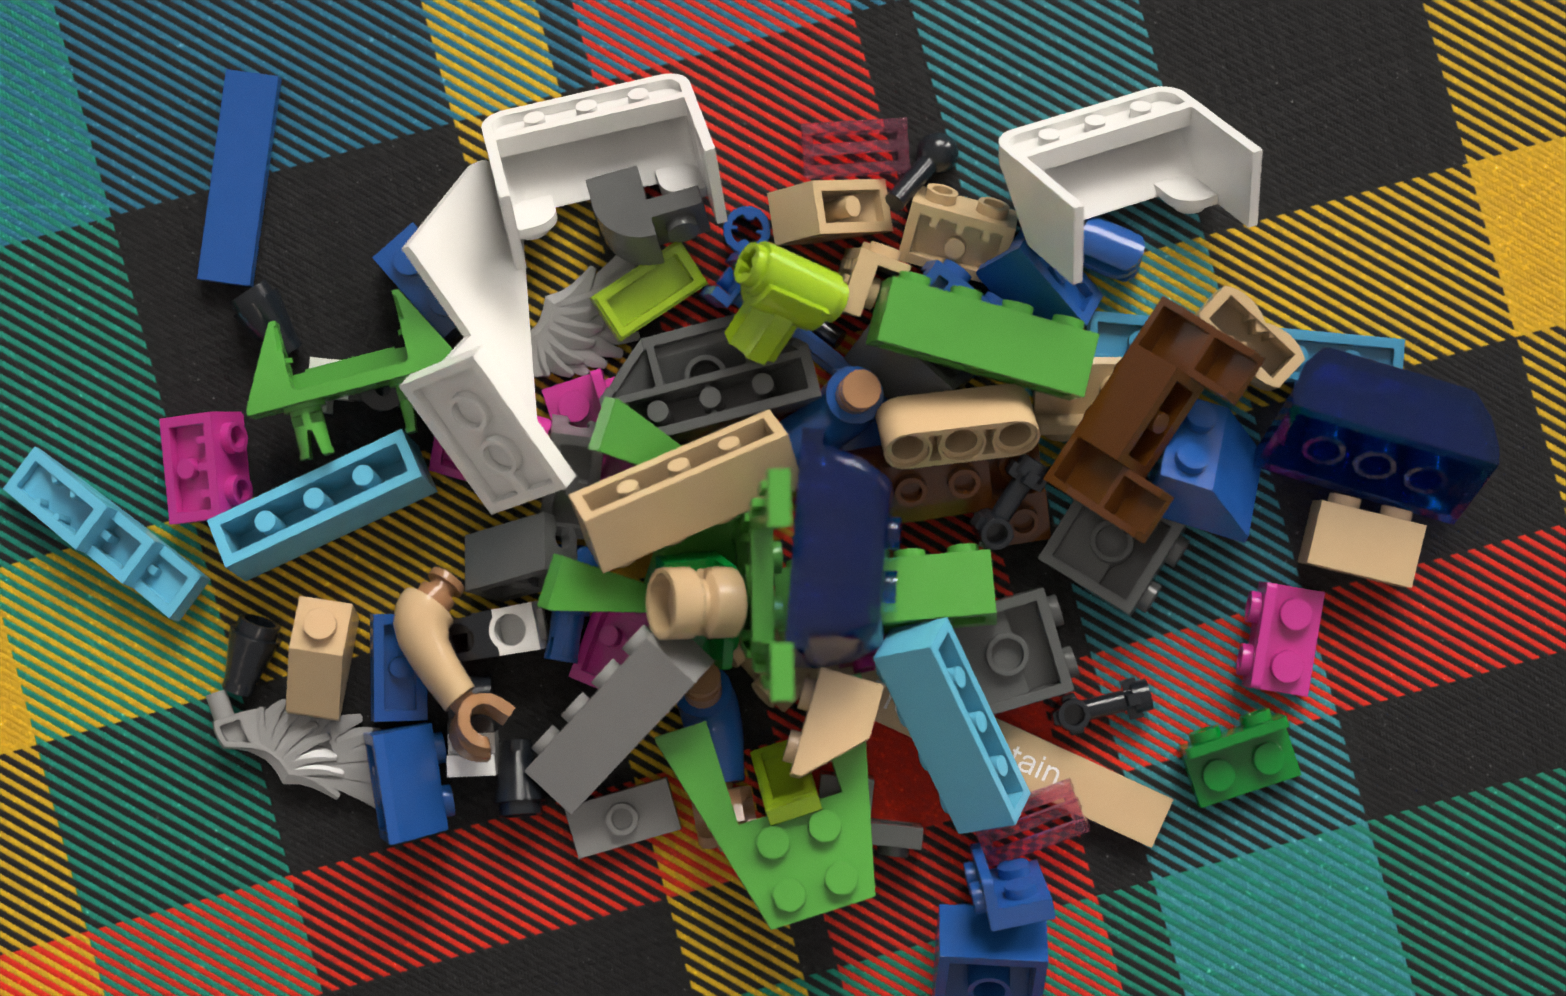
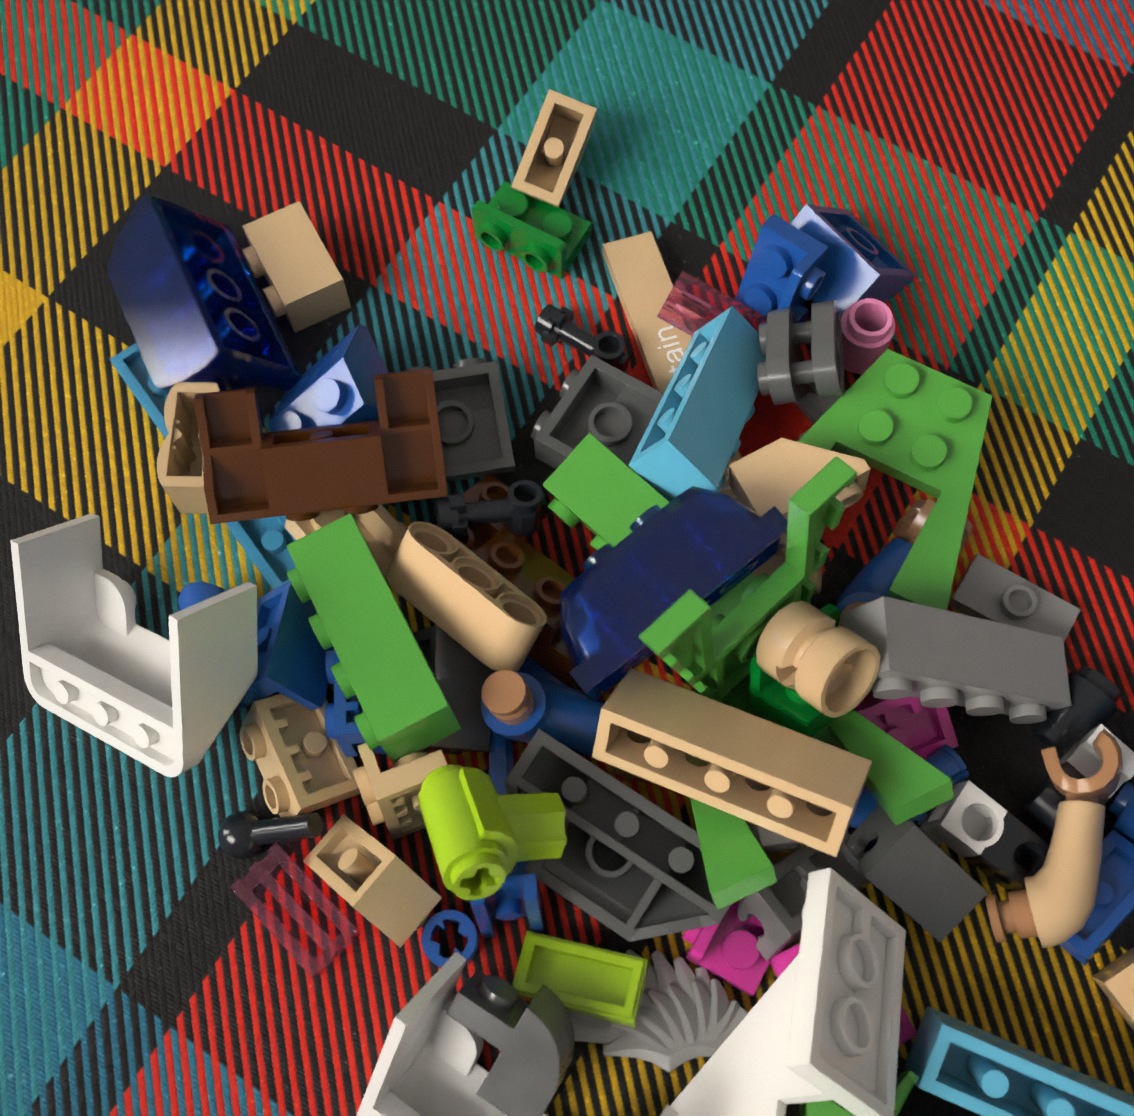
camera: 130 degrees left, 20 degrees down
(781, 794) = (885, 485): lime tile -> none
(917, 927) = (866, 333): none -> bright pink brick
(954, 833) = (781, 344): none -> dark grey brick
(1280, 638) = (418, 269): dark pink bracket -> none
(1287, 833) = (555, 148): none -> tan slope

